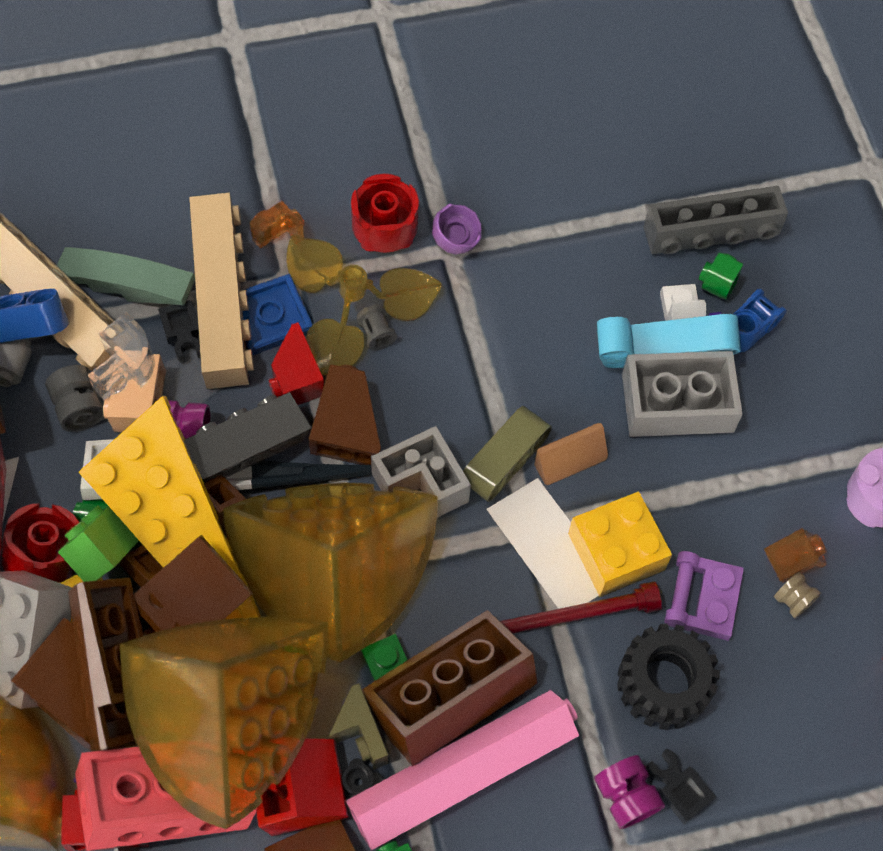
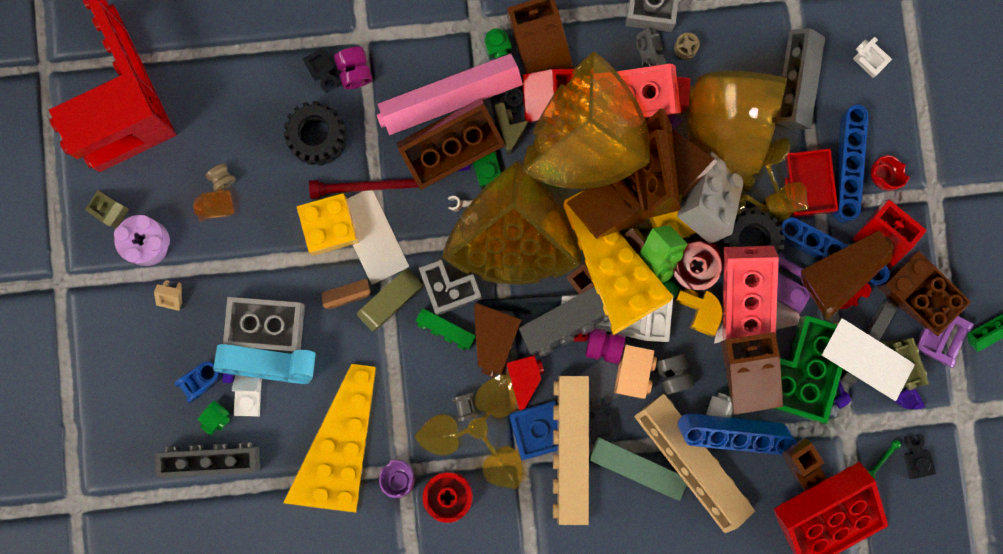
camera: 170 degrees left, 20 degrees up
(30, 482) = (708, 310): none -> yellow brick
(129, 357) = (634, 389): clear brick -> none
(274, 222) = (531, 502): clear orange bracket -> none
(411, 421) = (446, 329): none -> green piece
(423, 607) = (461, 203): none -> white hand
(544, 254) = (335, 460): none -> yellow wing
(716, 597) = (272, 185): medium lavender plate -> none
(826, 420) = (168, 297): none -> tan tile

